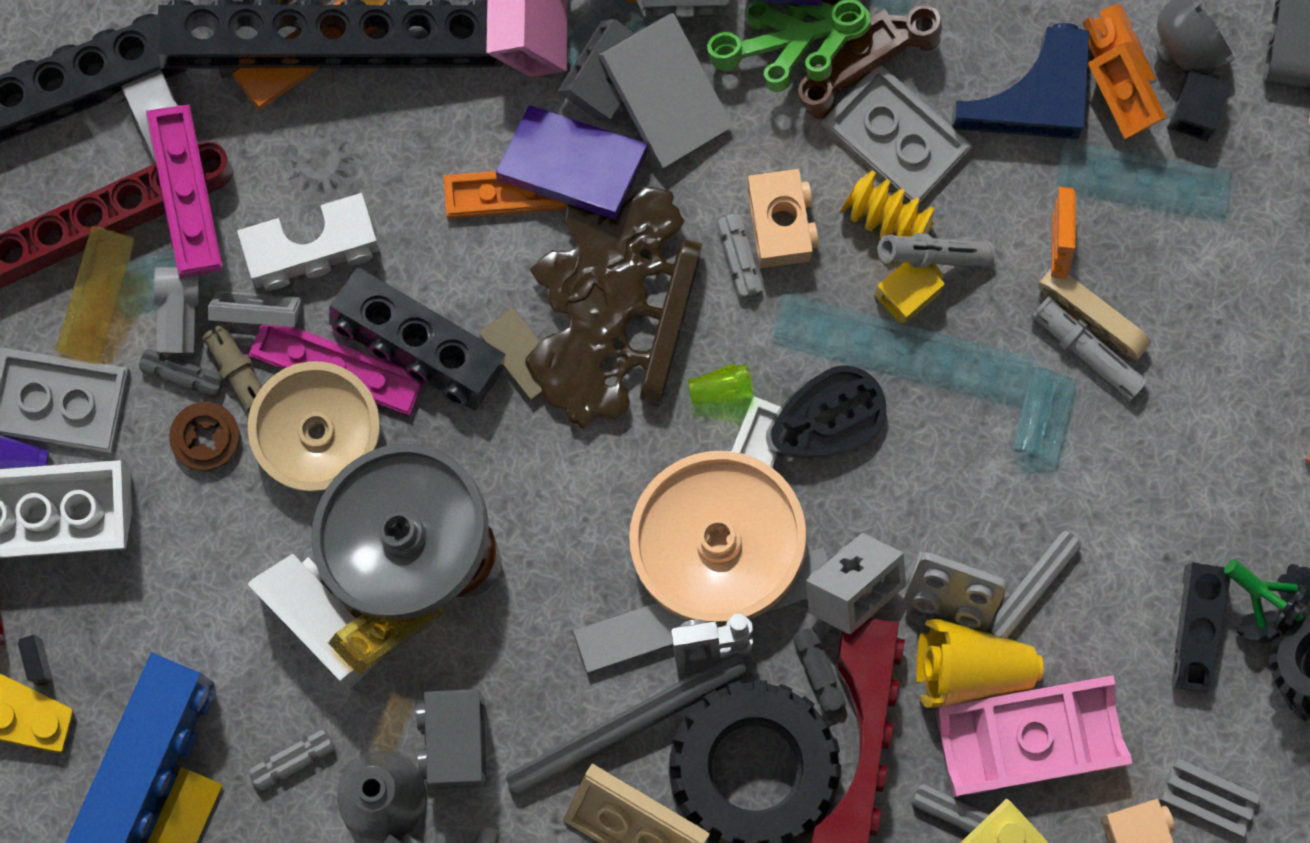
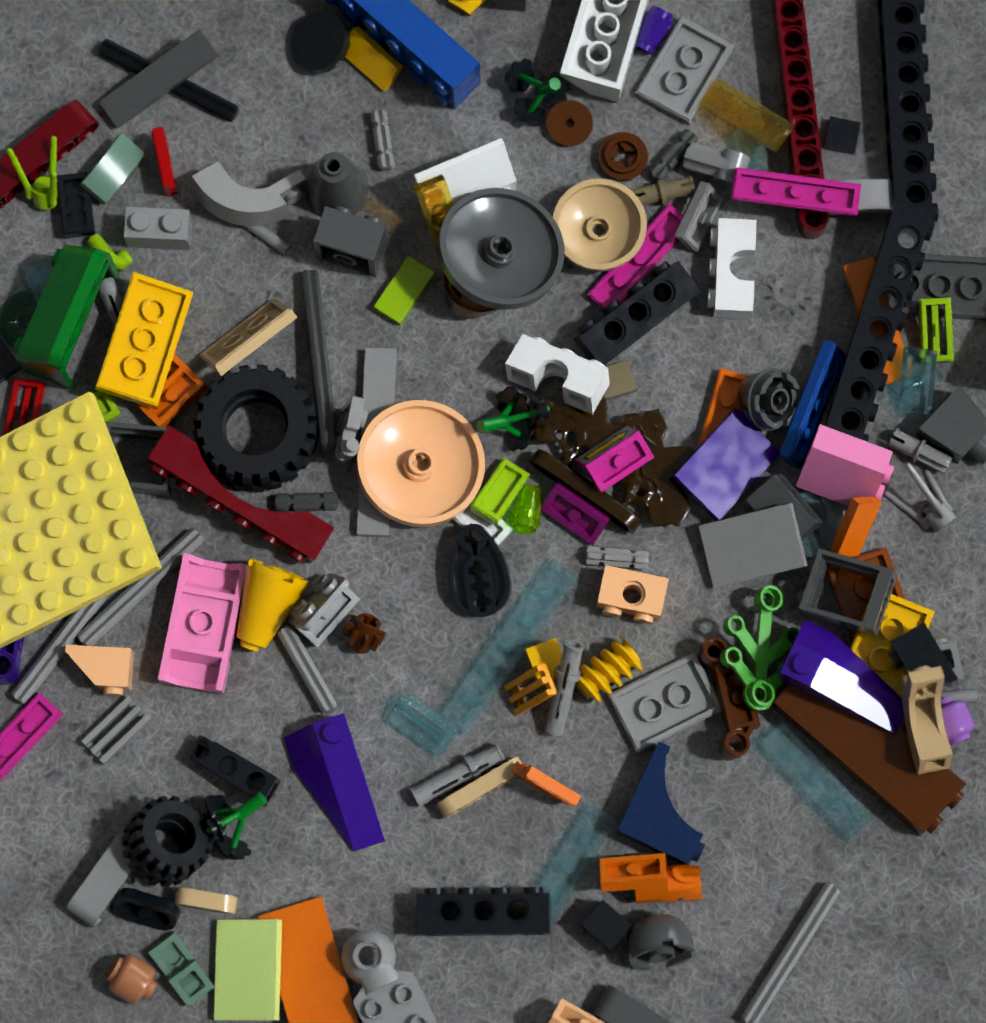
camera: 110 degrees right, 0 degrees up
(77, 171) = (842, 135): none -> black tile
(146, 563) = (549, 89): none -> black plant
(178, 508) = (573, 114): none -> reddish brown piece
(452, 85) = (812, 404): none -> blue tile
(469, 136) = (768, 398): none -> dark grey cone
(489, 652) = (404, 290): none -> lime tile
(528, 371) = (536, 360): none -> white arch
(618, 294) = (615, 457): none -> dark pink panel
(626, 438) = (519, 412): none -> black plant
(704, 323) = (575, 513): none -> magenta plate
(712, 428) = (499, 492): none -> lime tile
(855, 583) = (352, 540): light grey brick -> none
(963, 528) = (364, 633): none -> reddish brown gear
(973, 299) = (518, 695): none -> light orange tile
(1149, 502) = (333, 774): none -> dark purple wedge
(1236, 188) = (535, 922): none -> black brick

